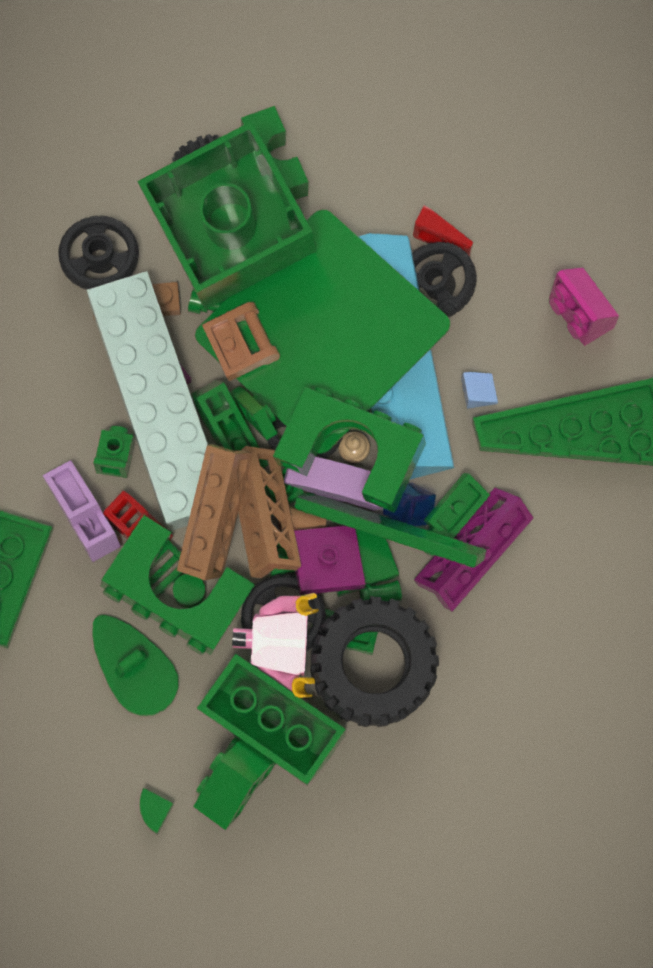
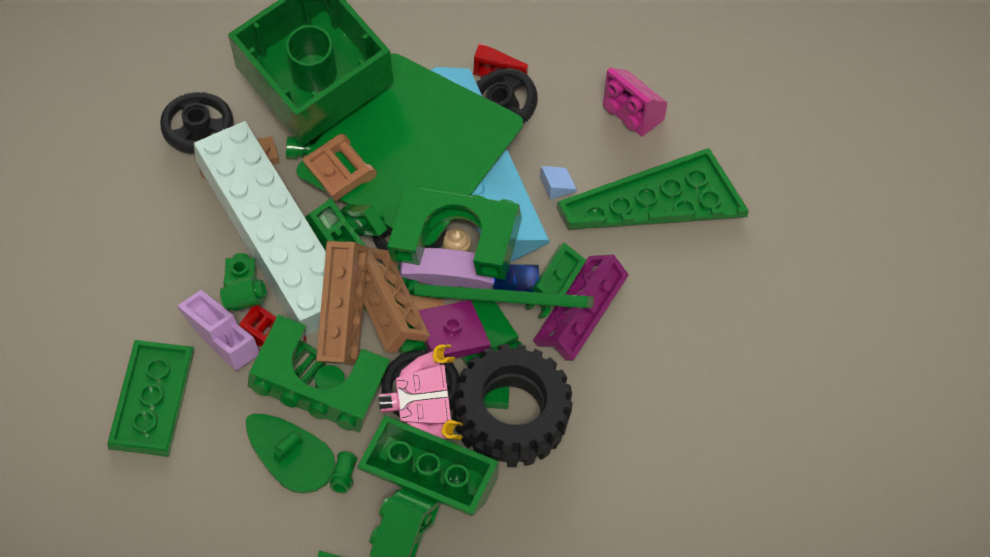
camera: 10 degrees left, 15 degrees down
(112, 479) = (243, 293): none -> green brick
(184, 702) = (341, 479): none -> green pin

